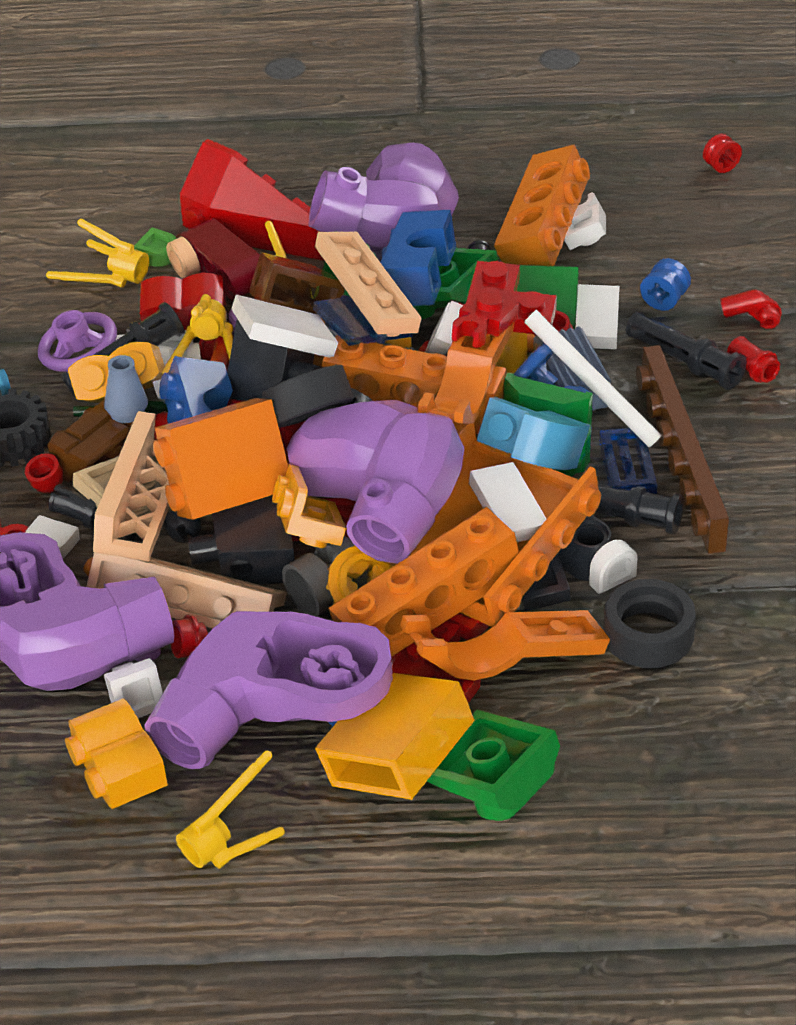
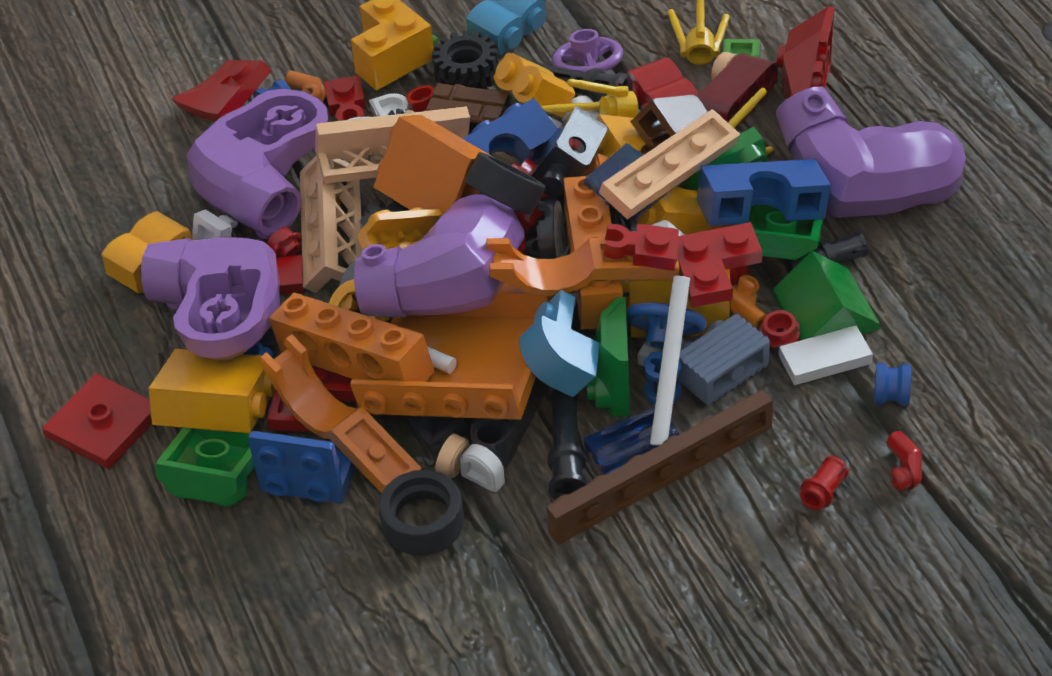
camera: 70 degrees right, 5 degrees up
(26, 505) = (384, 104): none -> white tile
(124, 390) = (492, 91): sand blue cone -> none
(207, 836) = (88, 329): yellow plant -> none
(284, 326) = (570, 133): white tile -> none
(355, 859) = (100, 421): none -> red plate
(509, 498) = (469, 354): white tile -> none
(543, 208) = (939, 261): orange brick -> none
(550, 684) = (300, 467): none -> blue bracket
(587, 224) = (948, 300): white plate -> none
(588, 581) = (449, 456): none -> light nougat tile
(700, 355) = (804, 442): black pin -> none

